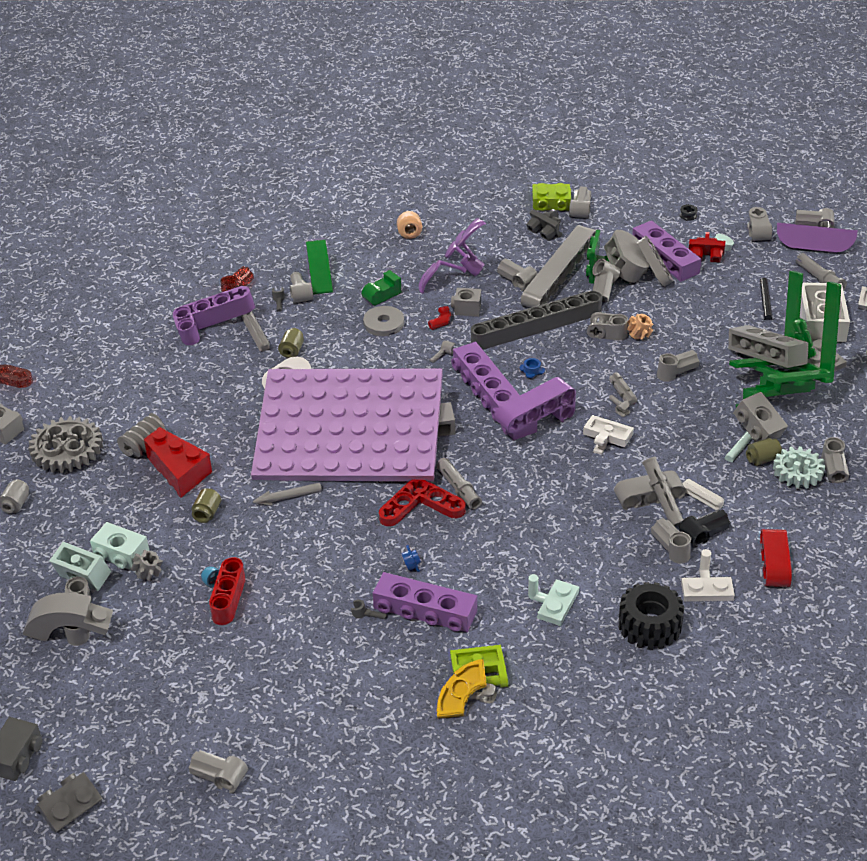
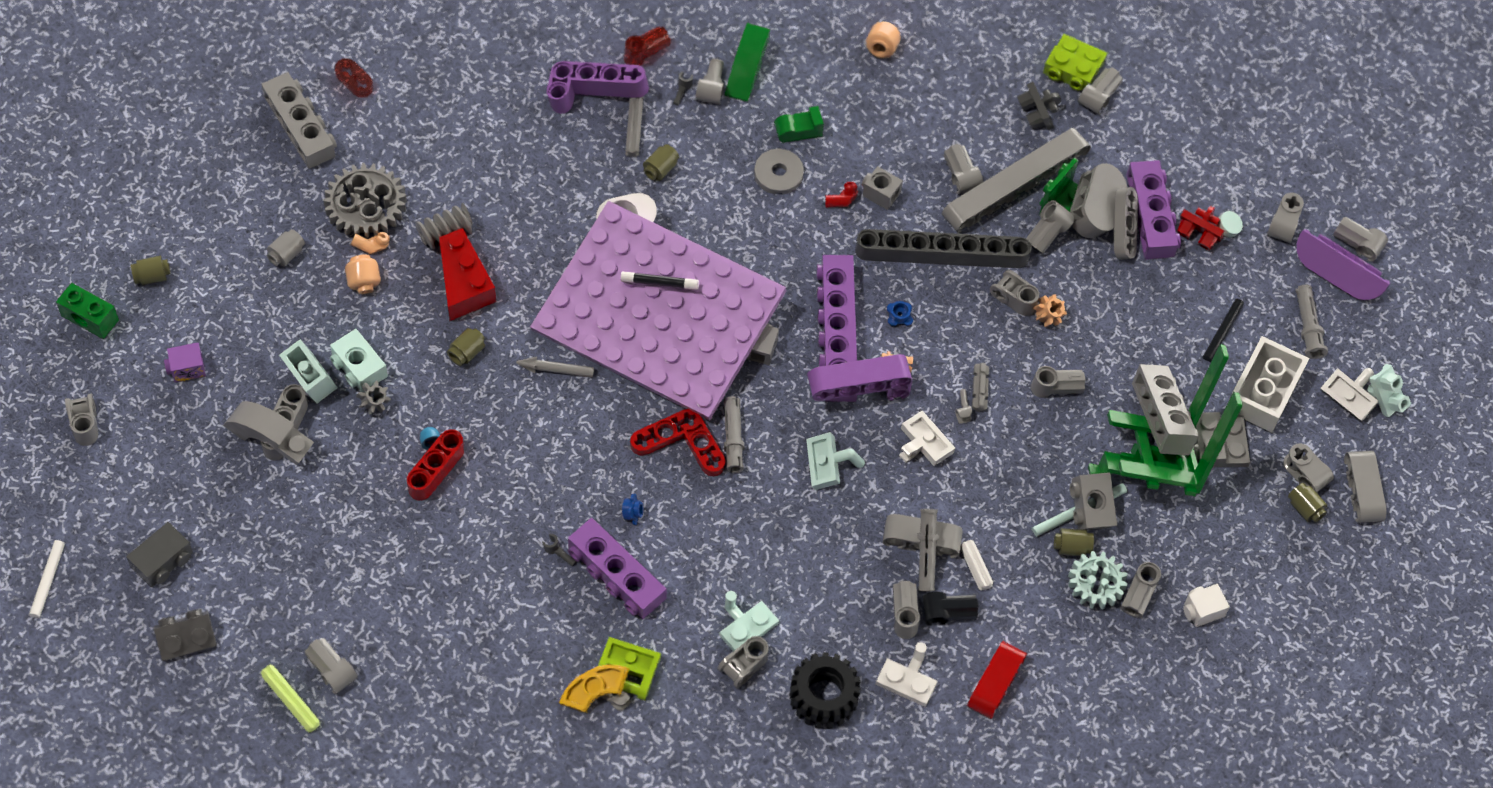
camera: 20 degrees right, 20 degrees up
(87, 471) = (373, 244): none -> light nougat arm
(90, 489) = (362, 274): none -> light nougat head
(194, 812) = (290, 698): none -> yellowish green axle
(339, 400) = (658, 280): none -> black bar
(446, 347) = (824, 242): light grey hand -> none
(469, 261) = (920, 102): medium lavender plant -> none
(541, 471) = (825, 459): none -> light aqua plate
(572, 622) = (741, 664): none -> light grey piece
(688, 212) = (1217, 152): black bush -> none
(804, 335) = (1203, 423): green axle -> none

